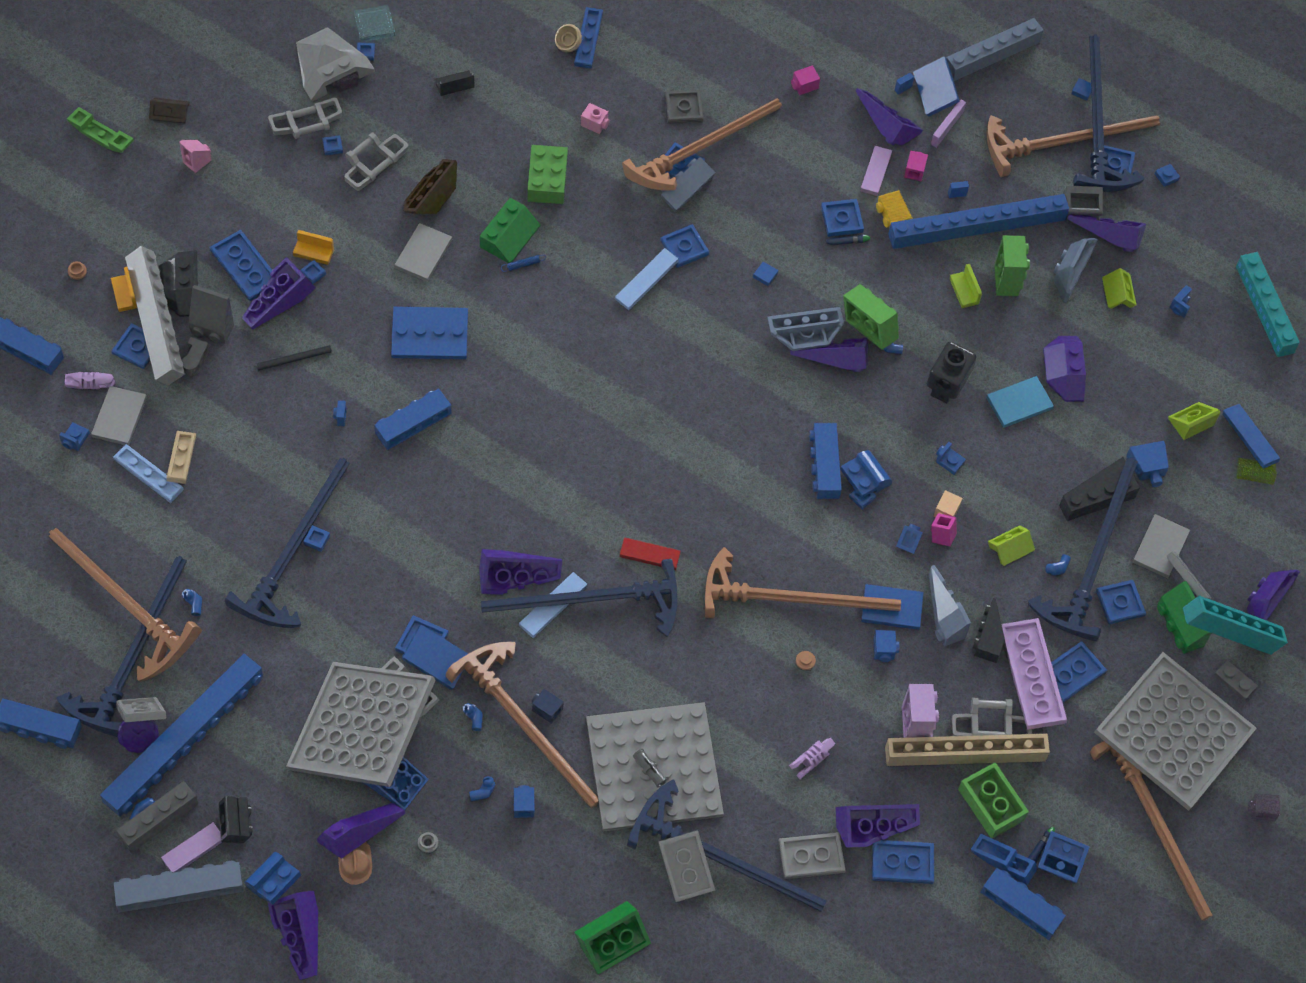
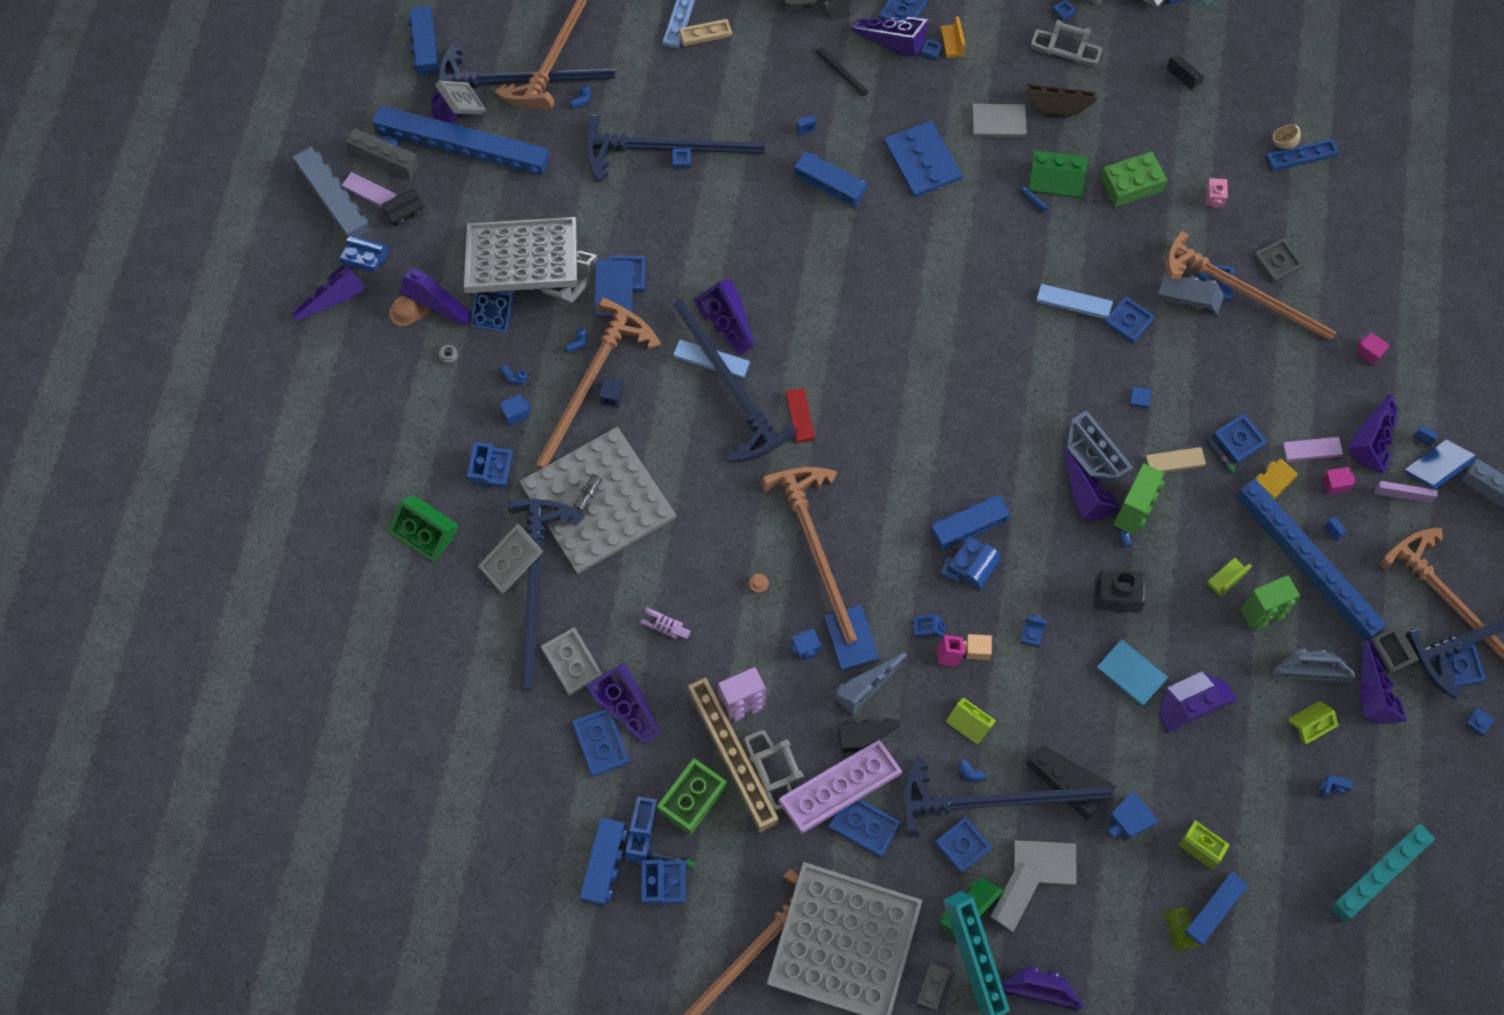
camera: 70 degrees right, 5 degrees up
(576, 847) = (489, 465): none -> blue brick
(838, 276) = (1177, 460): none -> tan tile

